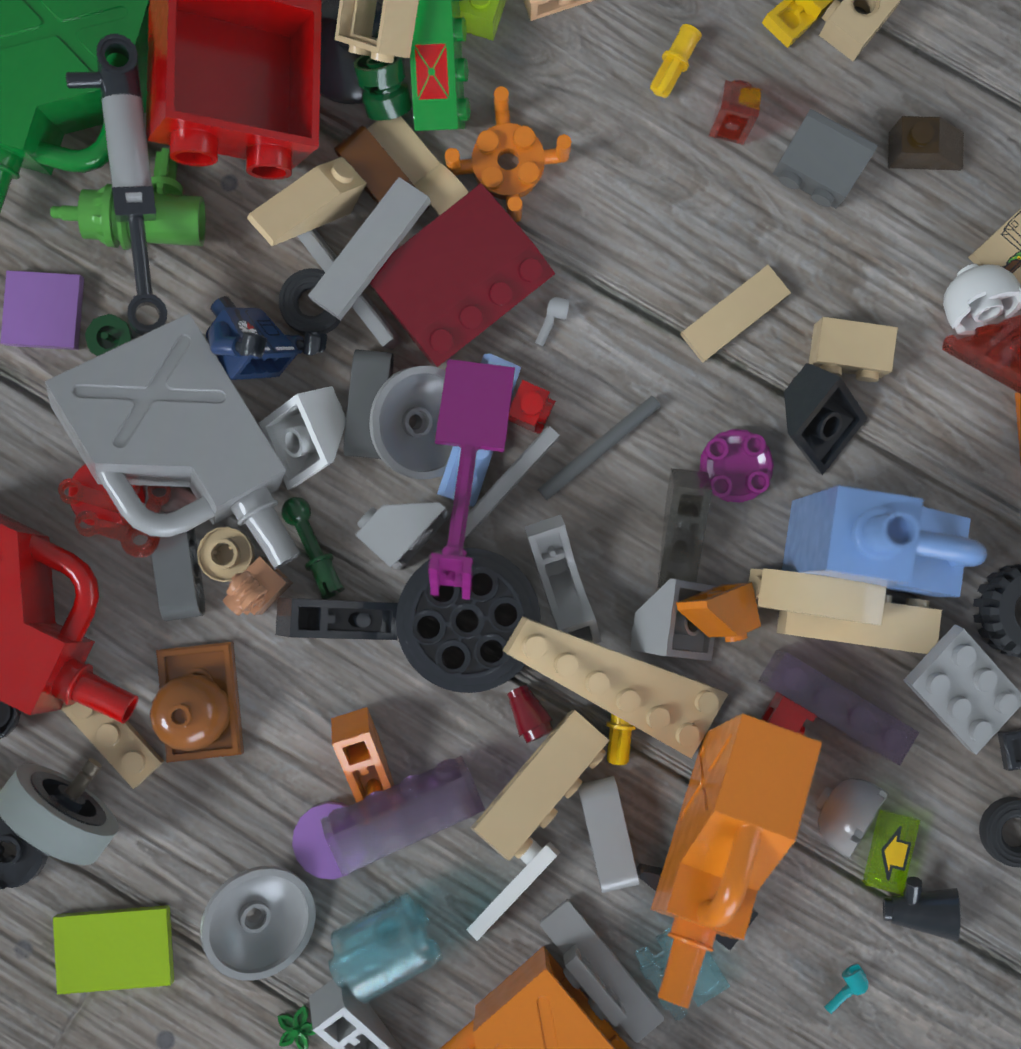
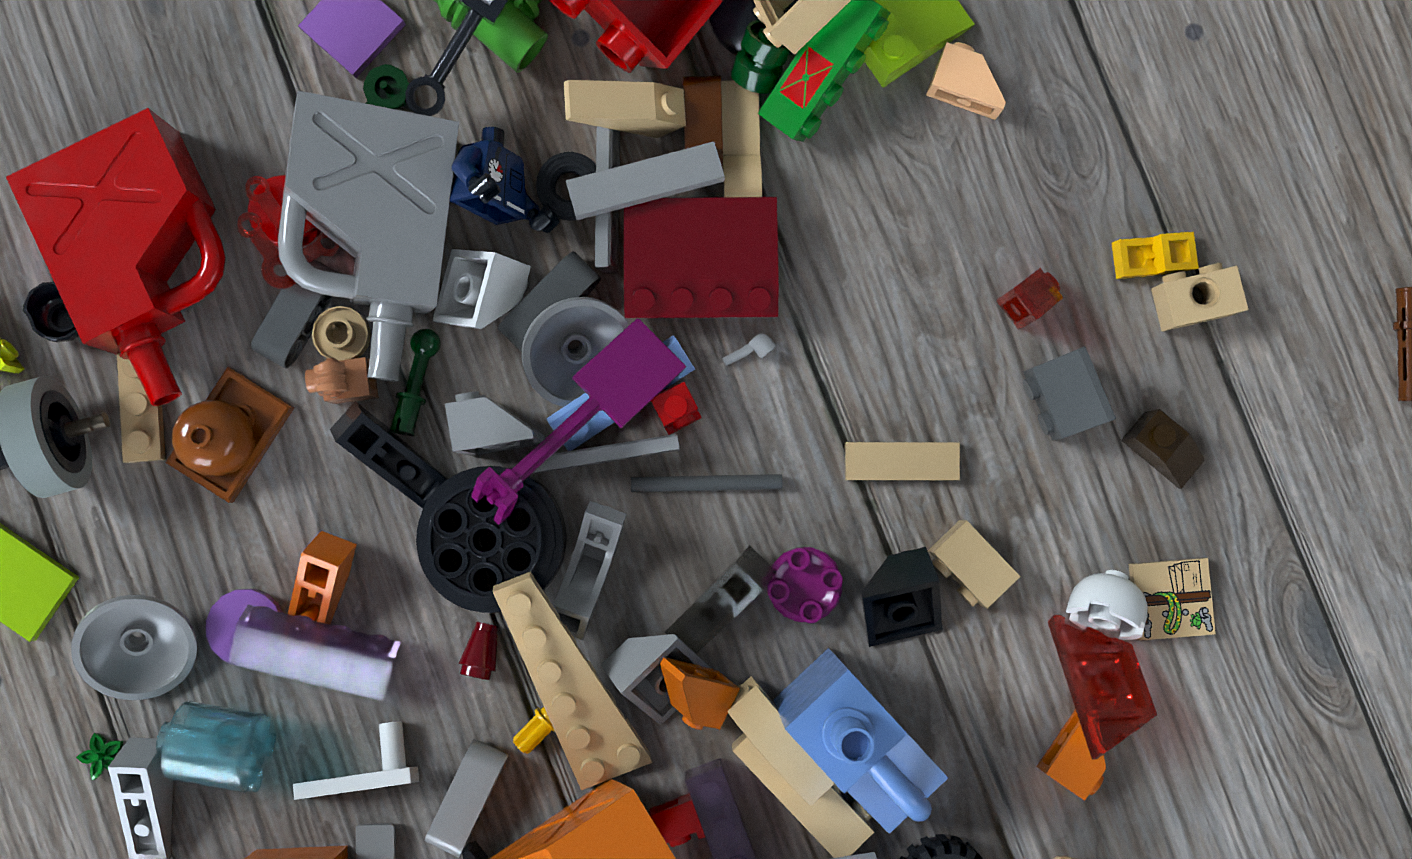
camera: 30 degrees right, 0 degrees up
(505, 139) = (825, 174): orange plate -> none
(540, 785) = (441, 716): tan brick -> none
(675, 60) = (1015, 219): yellow axle -> none

